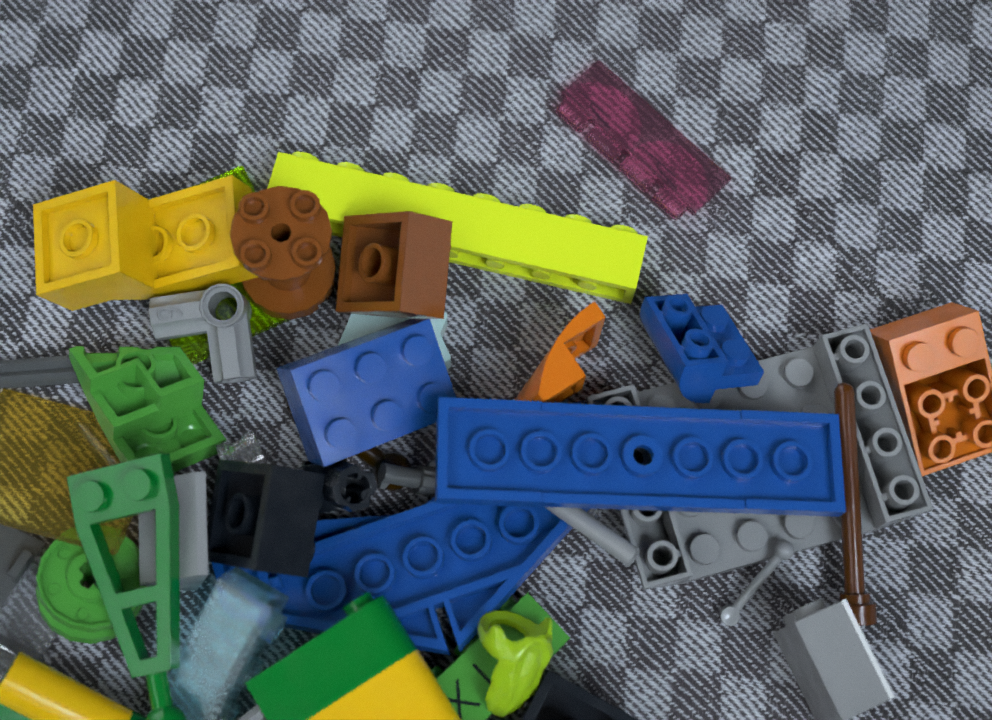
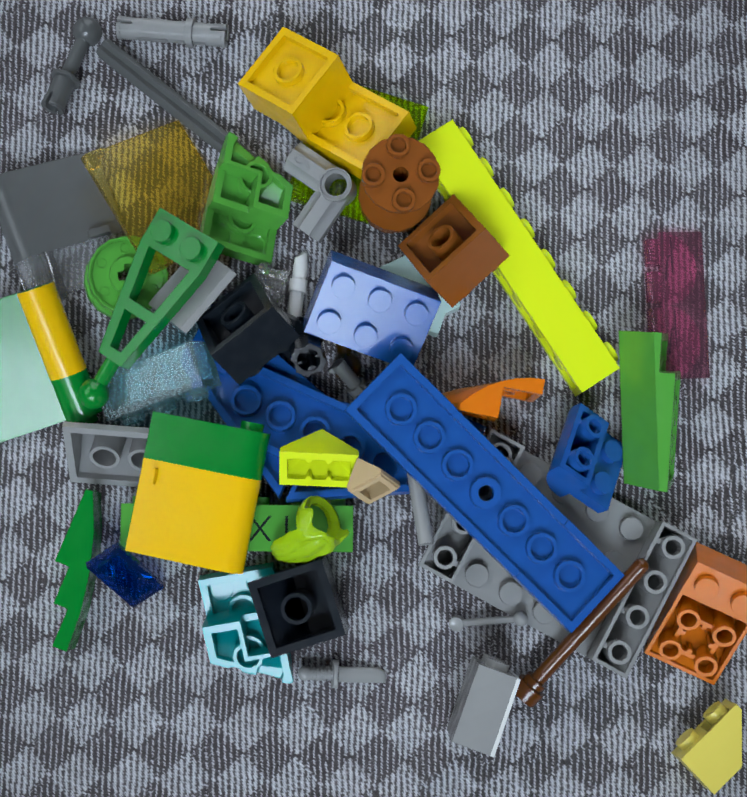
camera: 45 degrees right, 10 degrees up
(271, 436) = (298, 284): none -> white piece
(456, 578) = (317, 461): none -> neon yellow slope
(525, 547) = (370, 482): none -> tan slope
(709, 250) = (648, 410): none -> bright green slope

